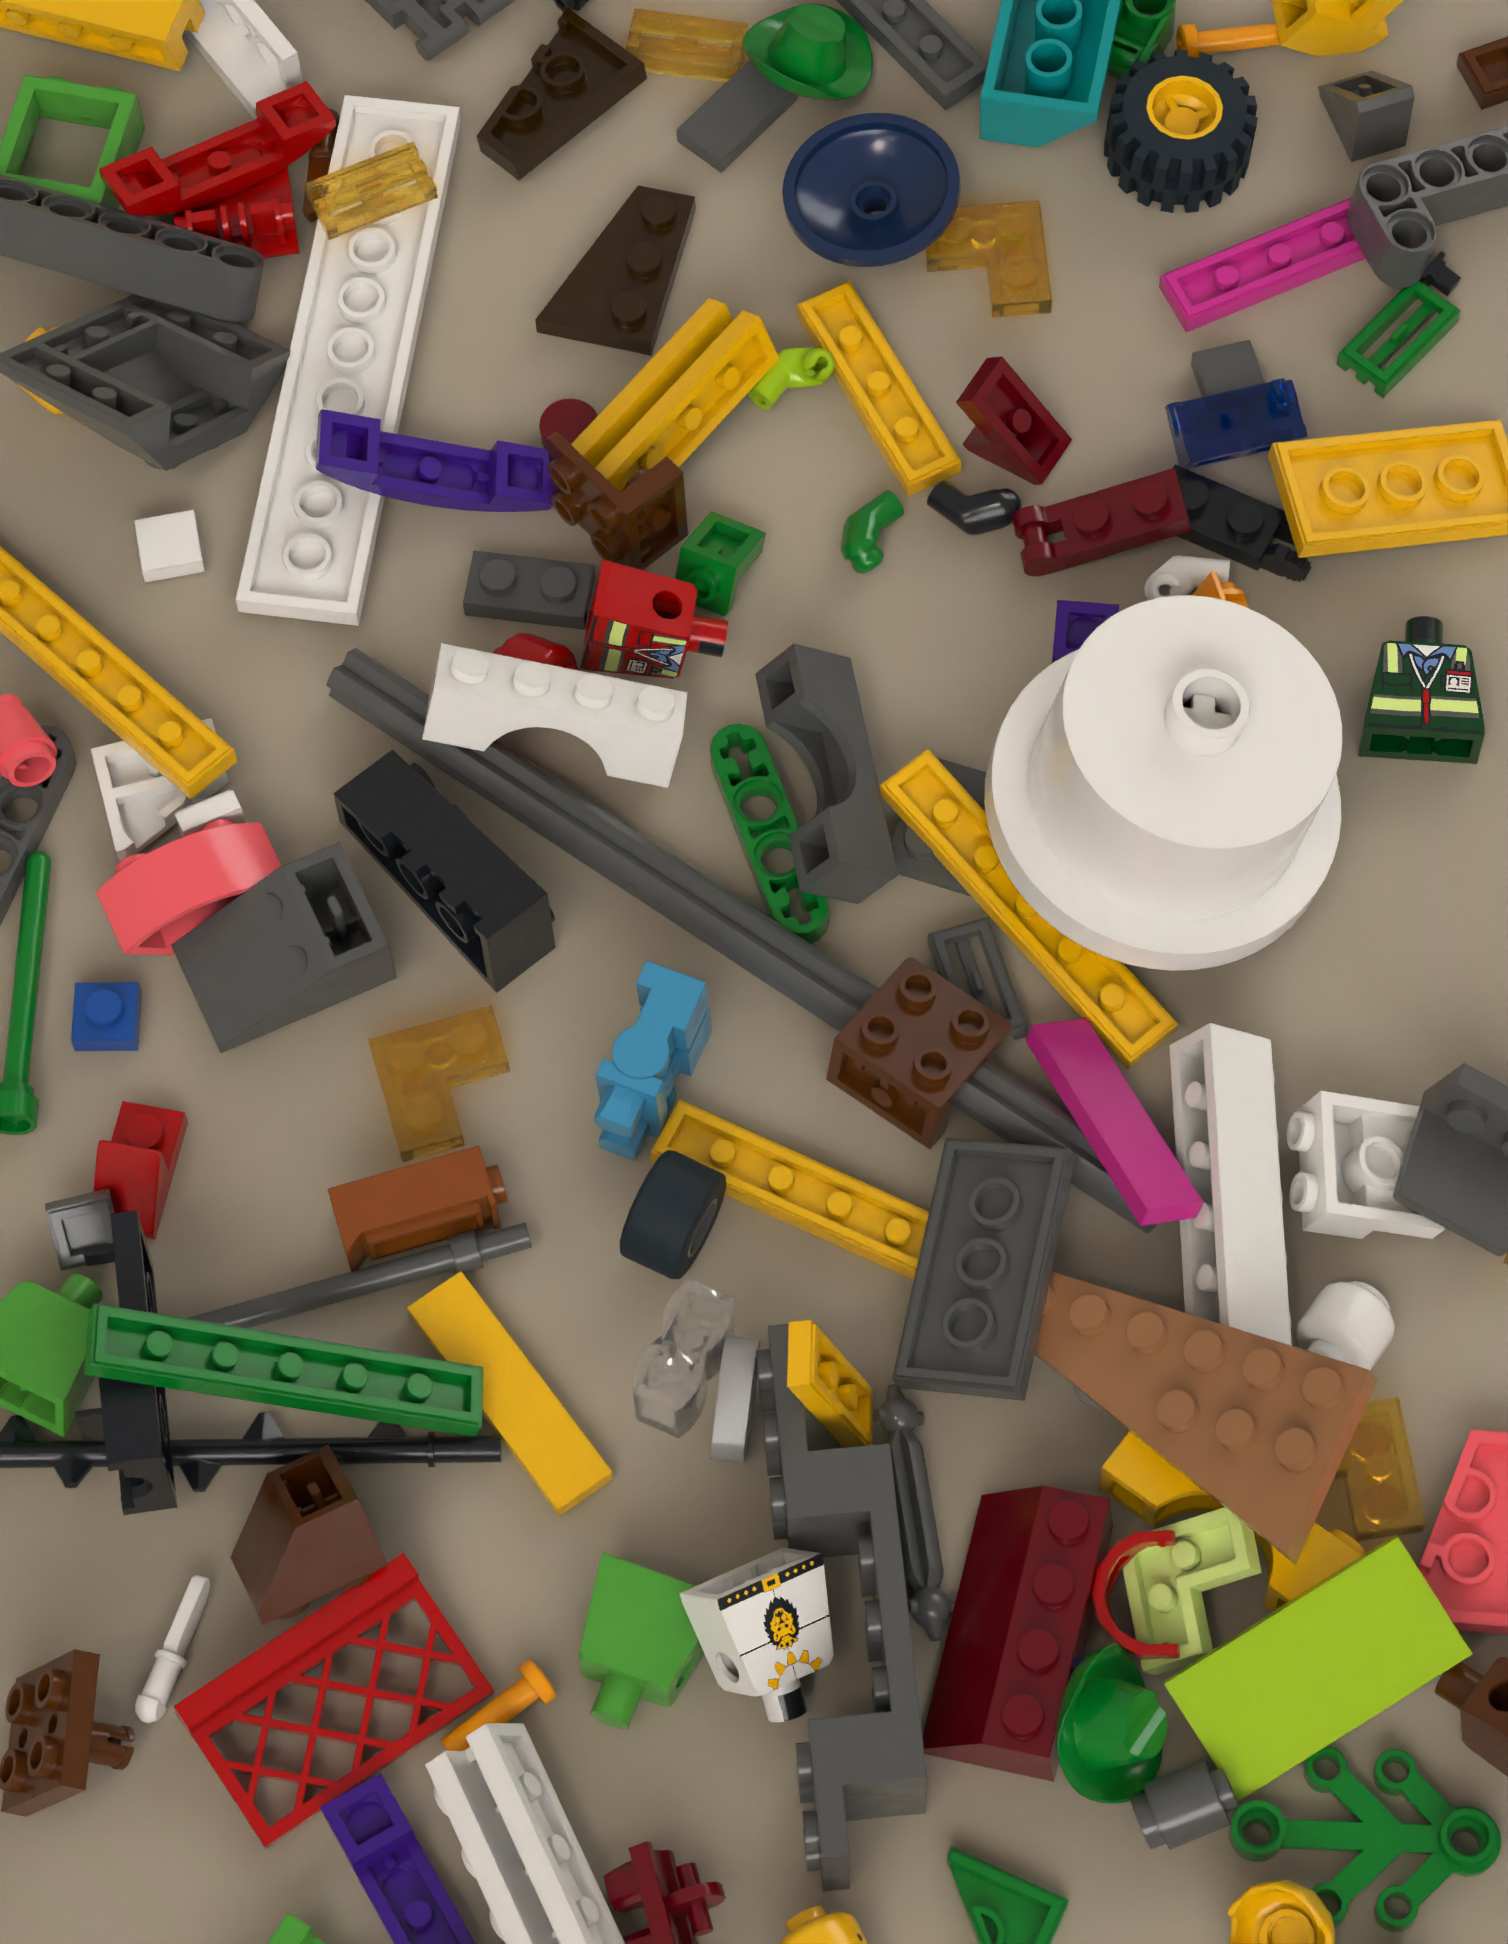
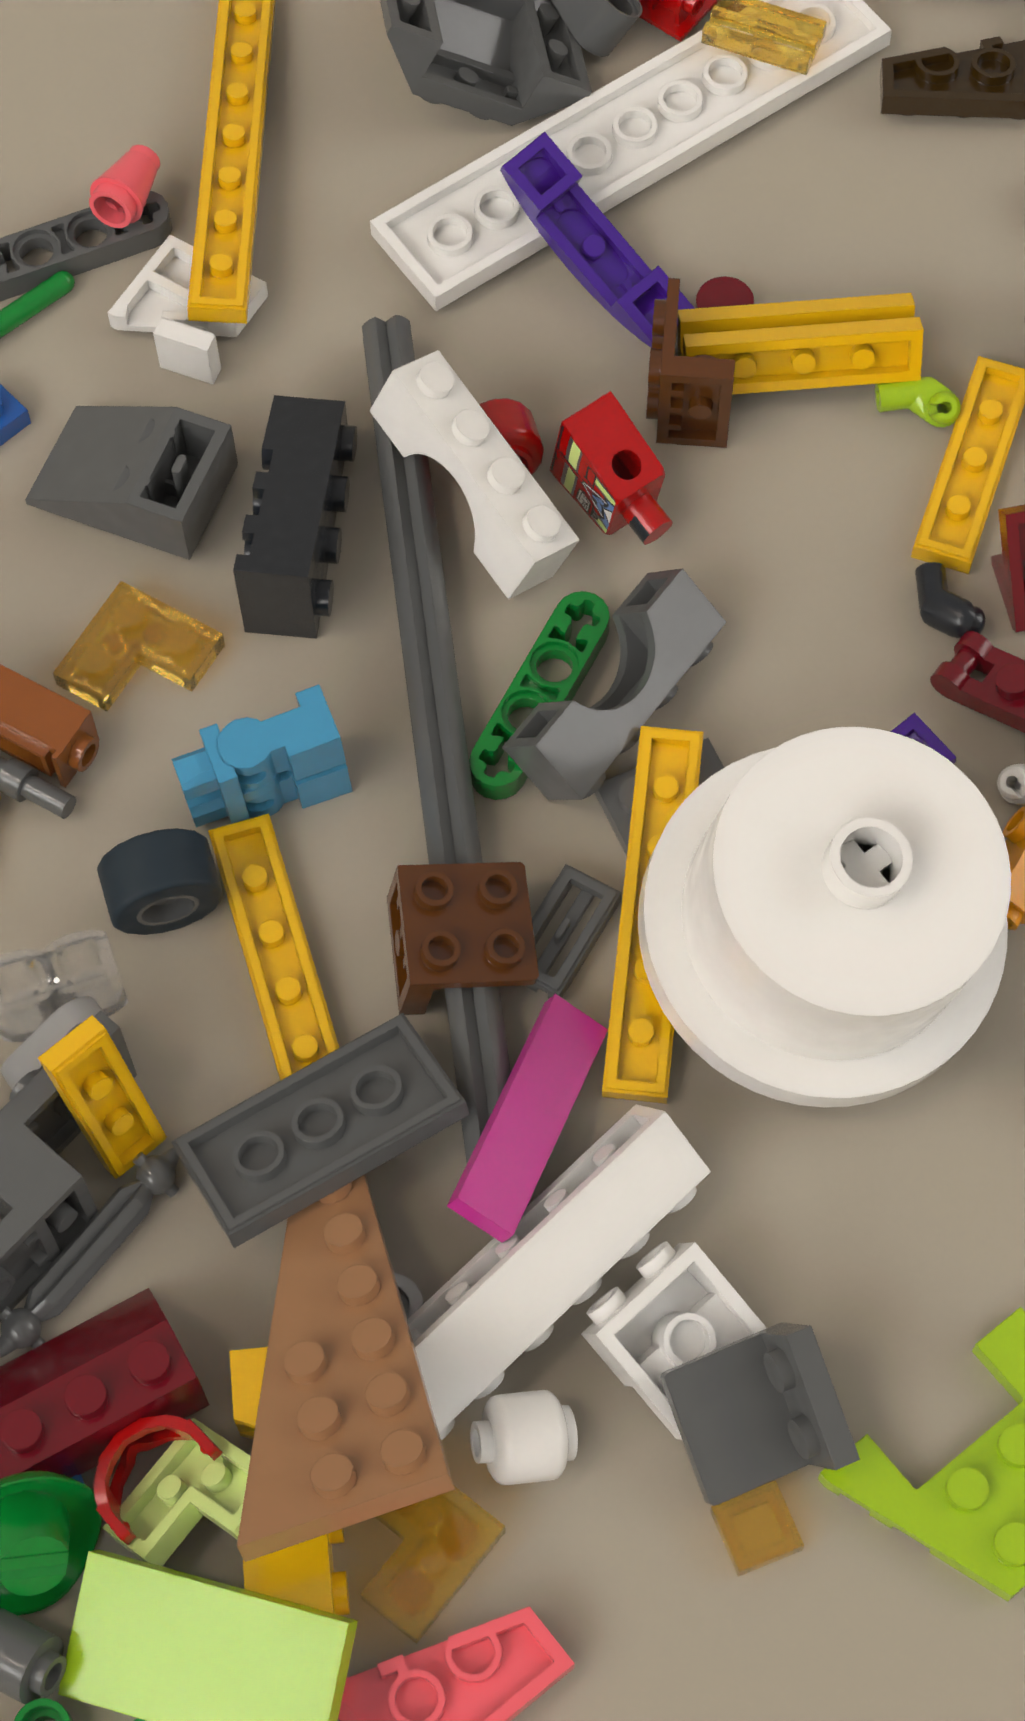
camera: 45 degrees right, 0 degrees up
(169, 546) = (377, 155): white tile -> none
(183, 884) = (120, 367): coral brick -> none
(529, 590) = (565, 375): dark grey plate -> none
(625, 276) = (884, 238): dark brown wing -> none
(717, 559) = (718, 474): green bracket -> none
(863, 528) = (847, 547): green arm -> none

